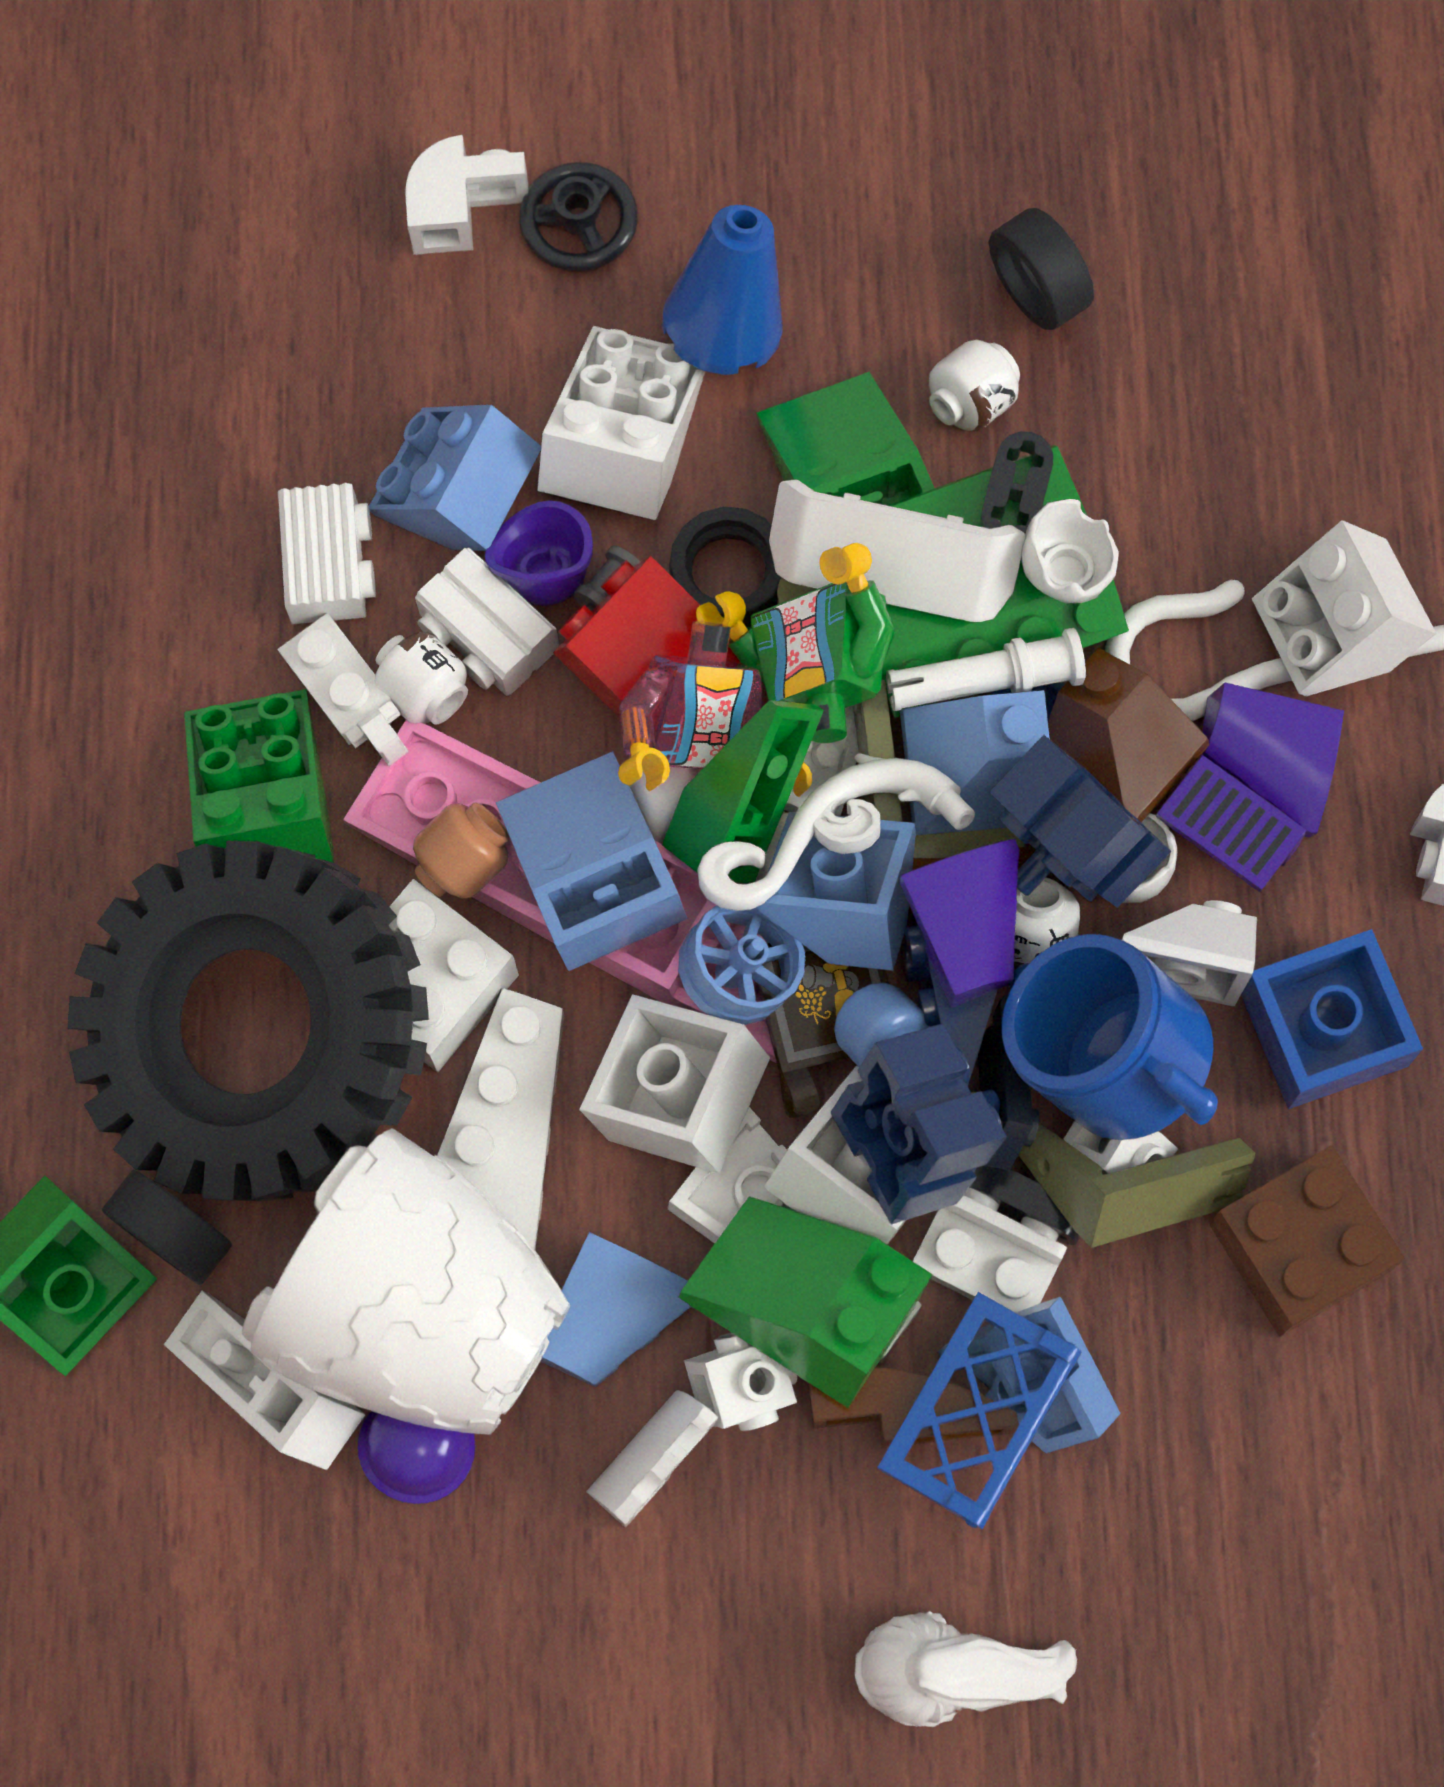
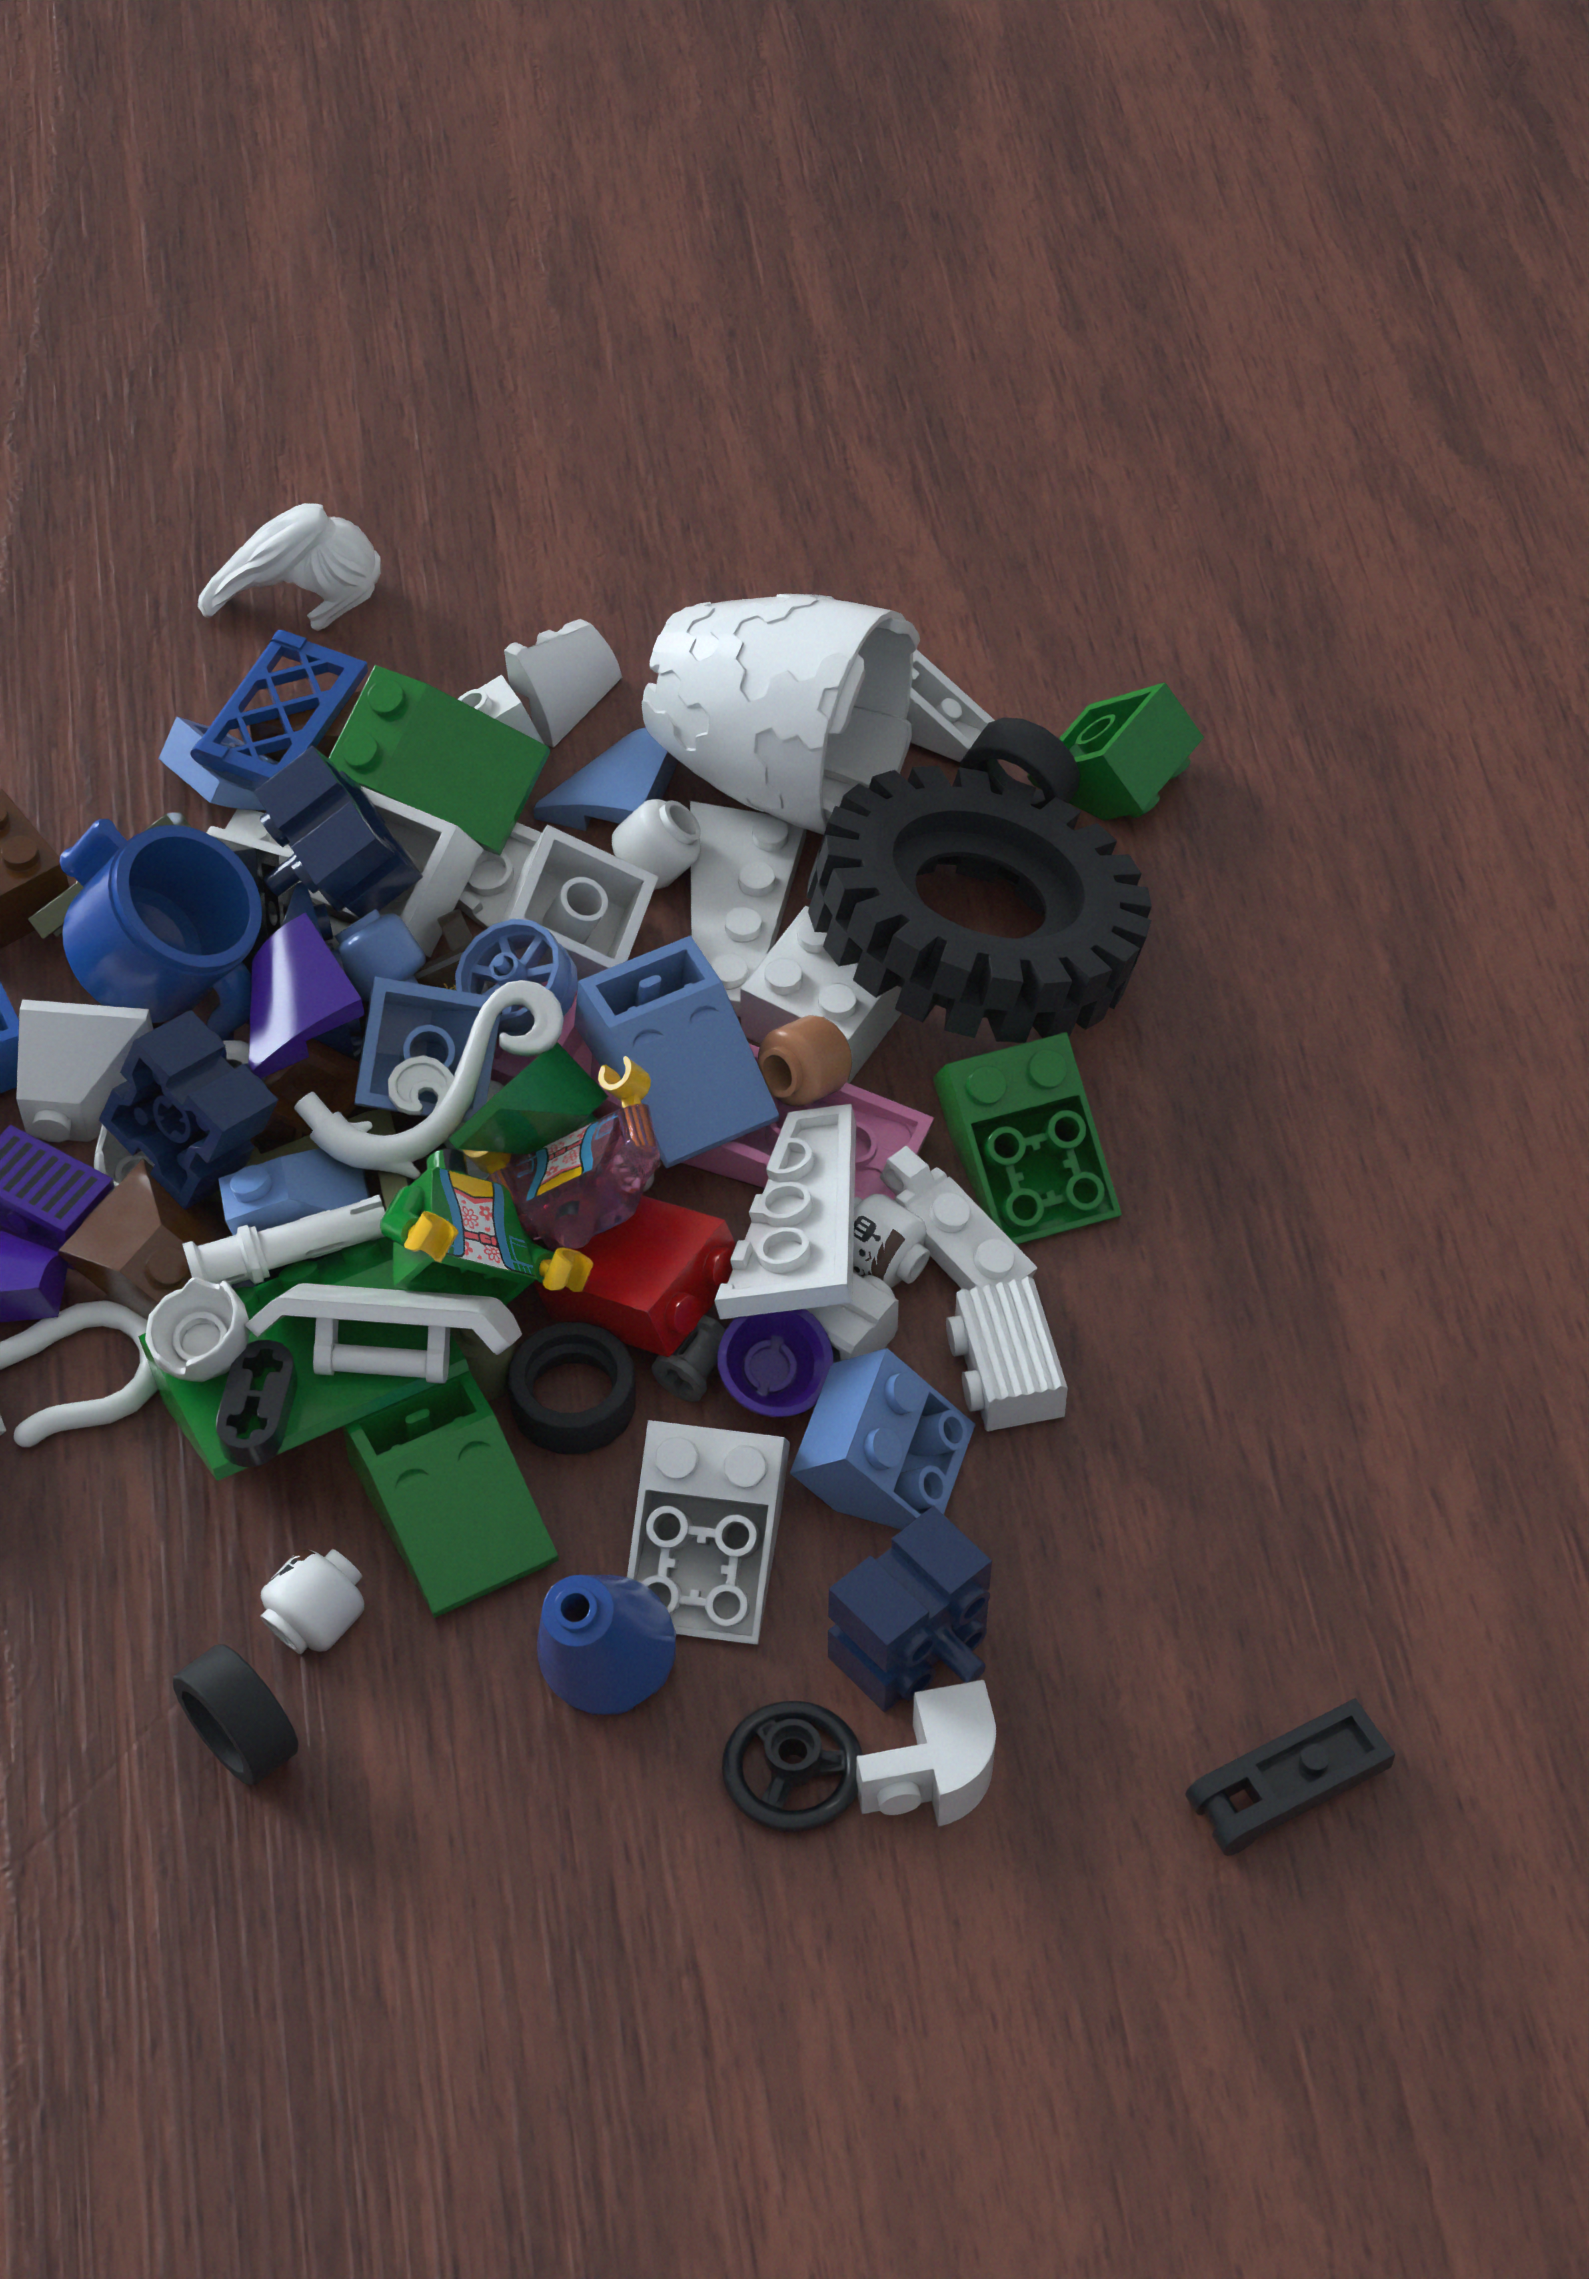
camera: 170 degrees right, 20 degrees down
(172, 154) = (1291, 1775): none -> black plate
(457, 289) = (911, 1610): none -> dark blue brick
(494, 651) = (802, 1223): none -> white wing
(575, 1190) = (659, 839): none -> white head

